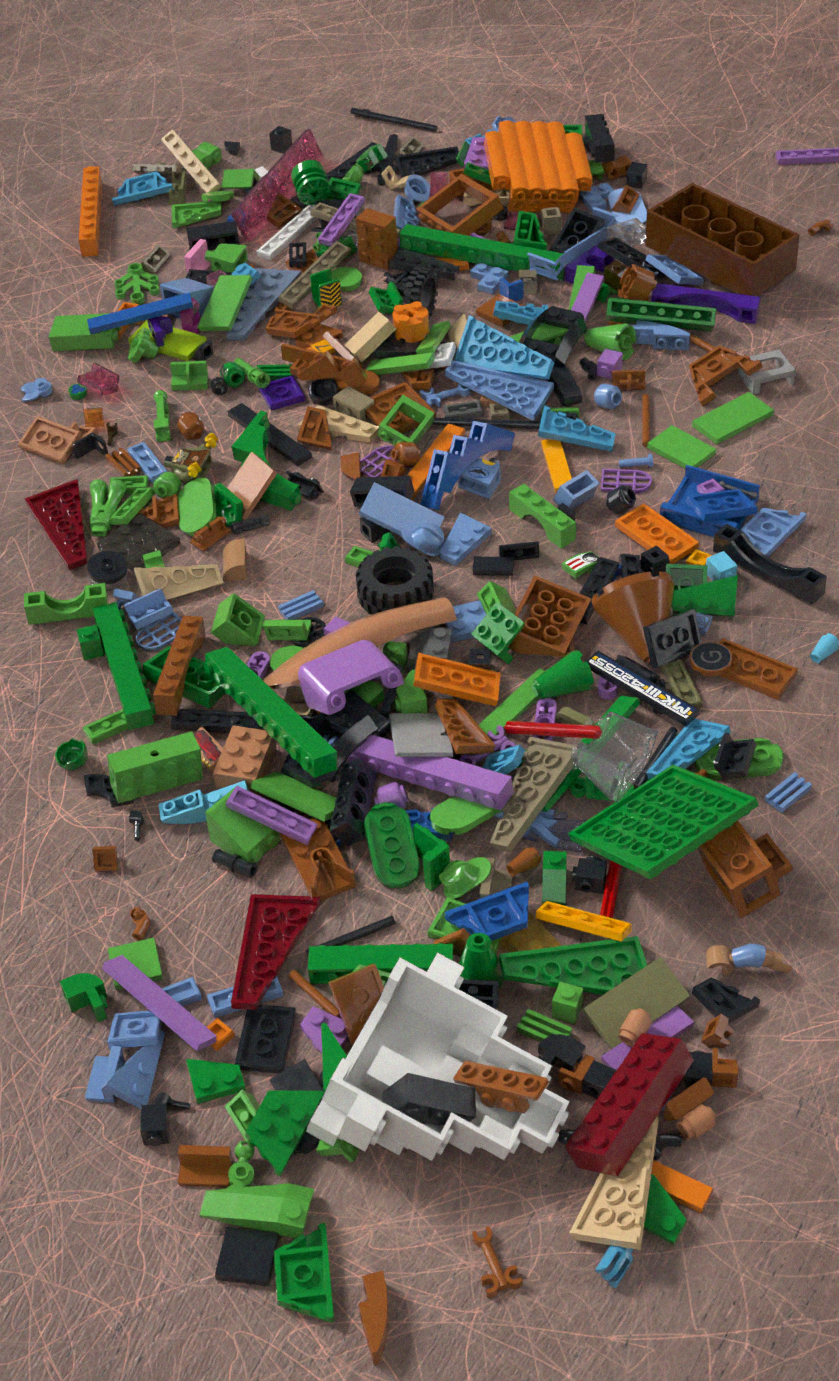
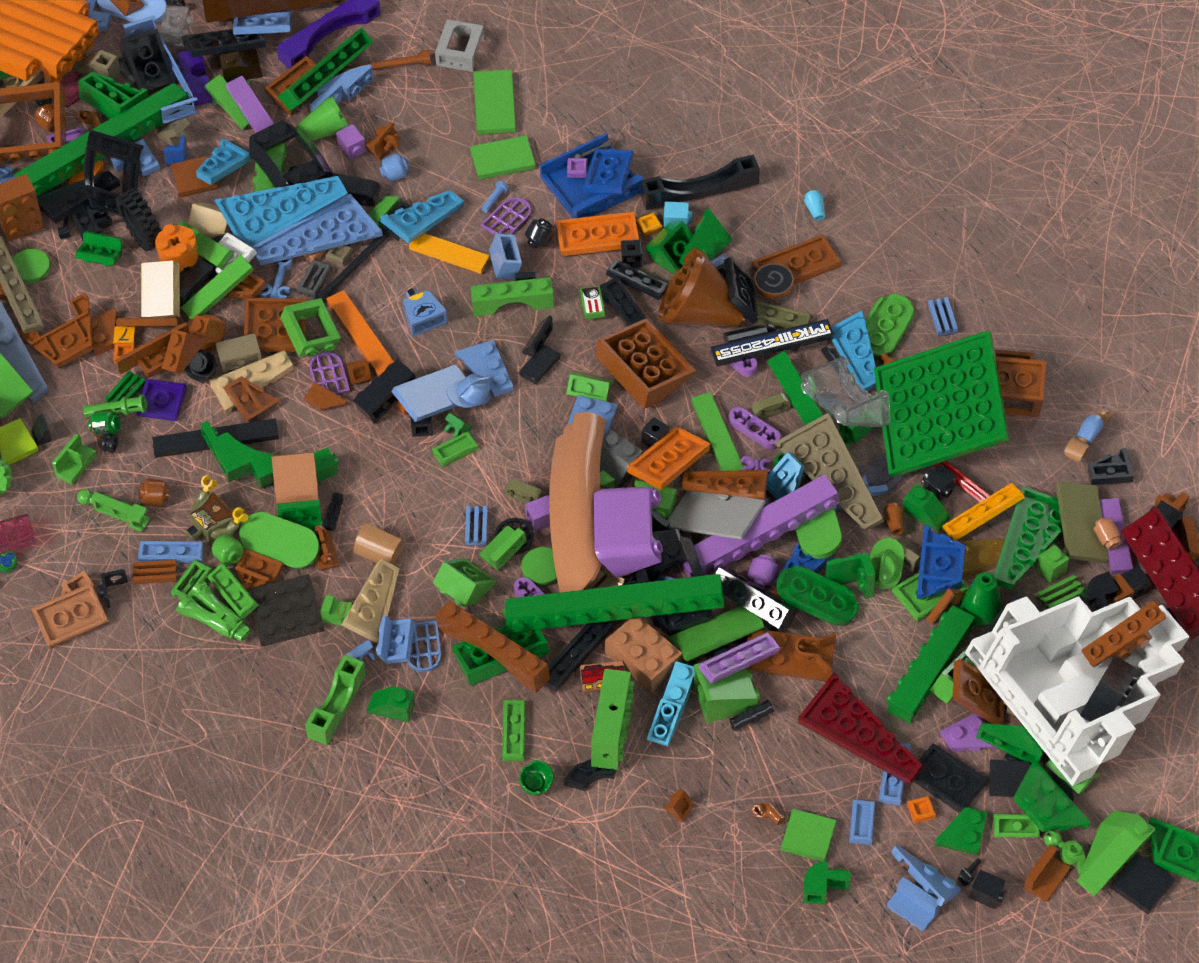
camera: 60 degrees left, 10 degrees up
(61, 520) = (193, 655): dark red wing -> none
(94, 417) = (67, 564): clear orange tile -> none
(108, 568) = (309, 649): black piece -> none
(111, 431) = (96, 561): dark brown hand -> none
(123, 666) = (455, 691): green brick -> none
(134, 1029) = (884, 861): medium blue tile -> none
(136, 818) = (647, 762): black hand -> none
(159, 1003) = (870, 832): medium lavender tile -> none
(309, 486) = (323, 441): black hinge -> none
(314, 993) = (926, 724): dark orange bar -> none
(324, 289) = (38, 292): piece -> none
(352, 610) = (522, 491): none -> olive beam
(359, 933) = (884, 673): black bar -> none
(393, 566) = (511, 420): black tyre -> none
(406, 453) = (346, 349): dark orange head -> none
(448, 466) = (403, 317): blue arch -> none
(472, 251) = (117, 149): none -> black wedge
(498, 631) = (642, 398): green bracket -> none
(553, 729) = (780, 423): red axle -> none
(564, 677) = (724, 383): green cone -> none
(589, 367) = (340, 157): black arm -> none
(637, 283) = (268, 60): dark orange brick -> none
(645, 419) = (444, 160): dark orange bar -> none
(715, 366) = (425, 74): dark orange wing -> none
(716, 1030) = (1136, 489): dark orange tile -> none
(734, 757) = (895, 325): black bracket -> none
(771, 528) = (655, 157): medium blue wing -> none

